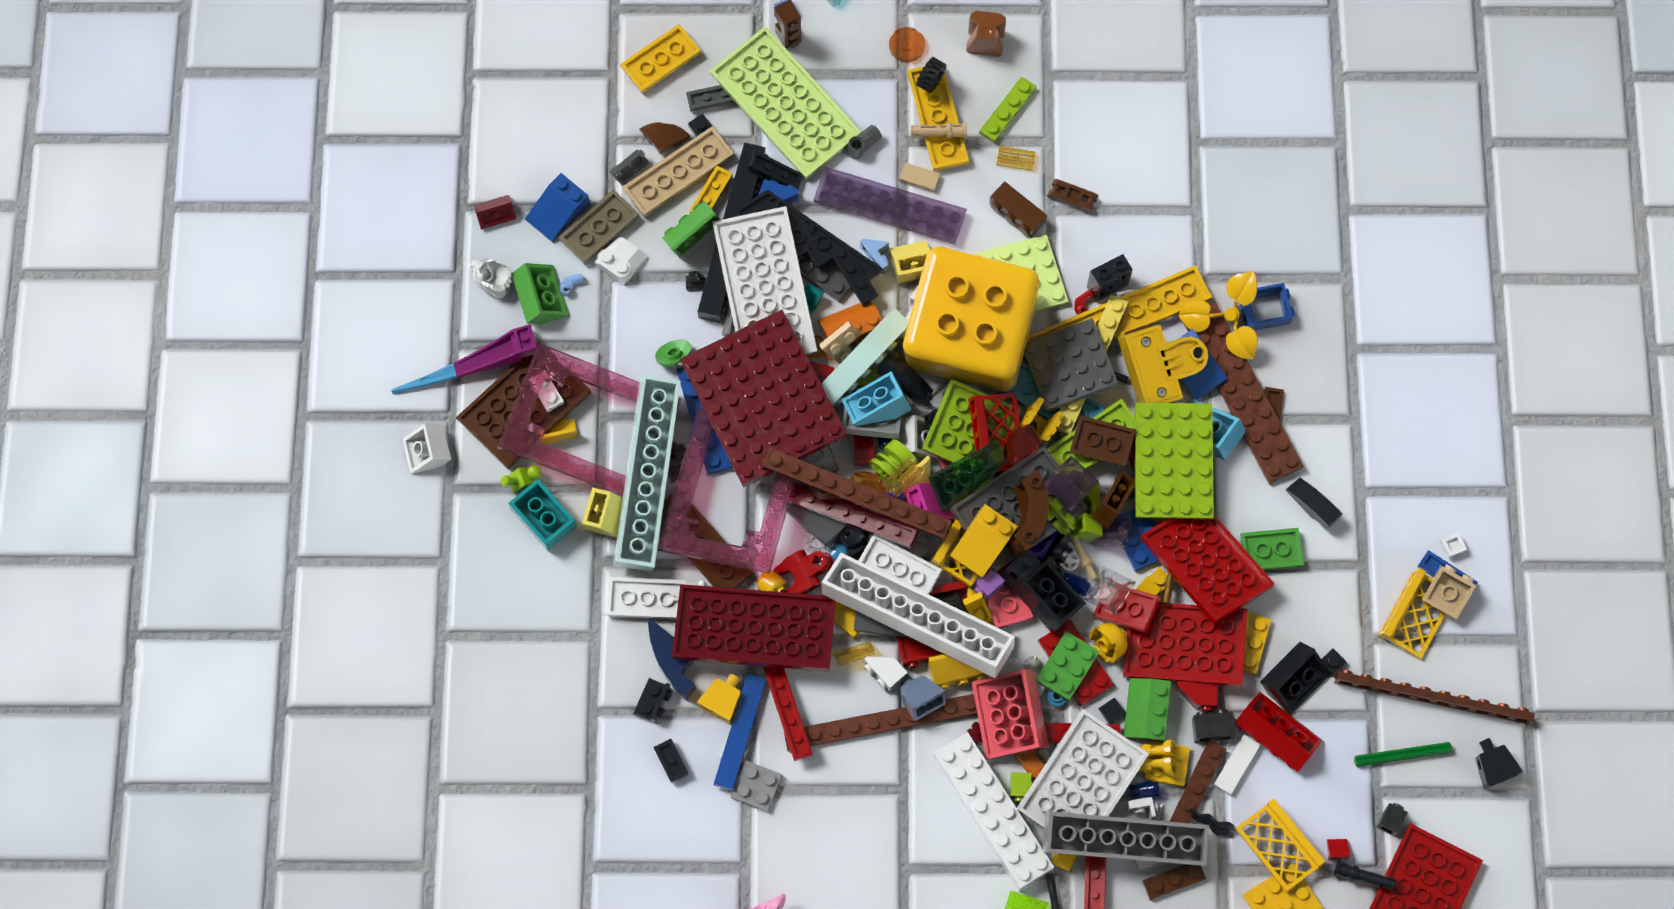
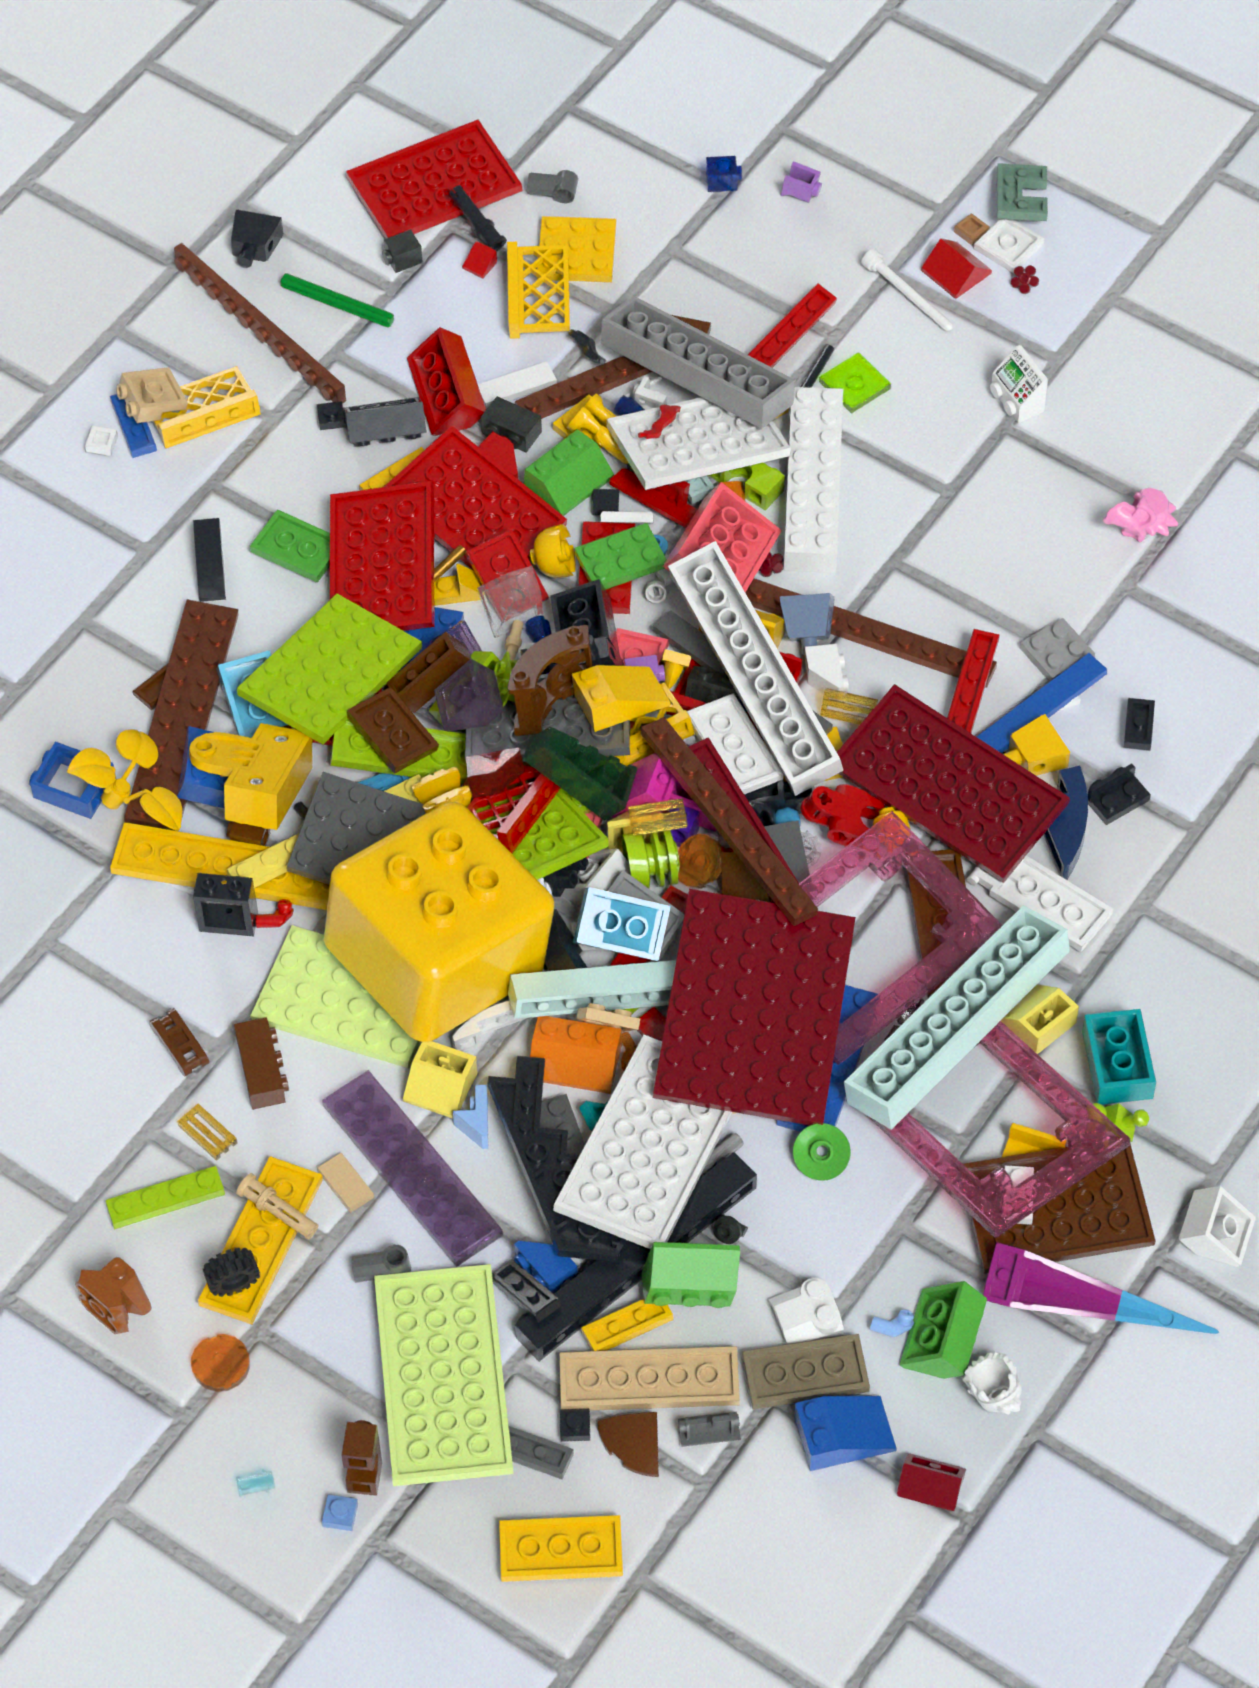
camera: 145 degrees left, 15 degrees down
(1088, 702) = (627, 517): none -> white tile
(1110, 778) = (667, 415): none -> red hair

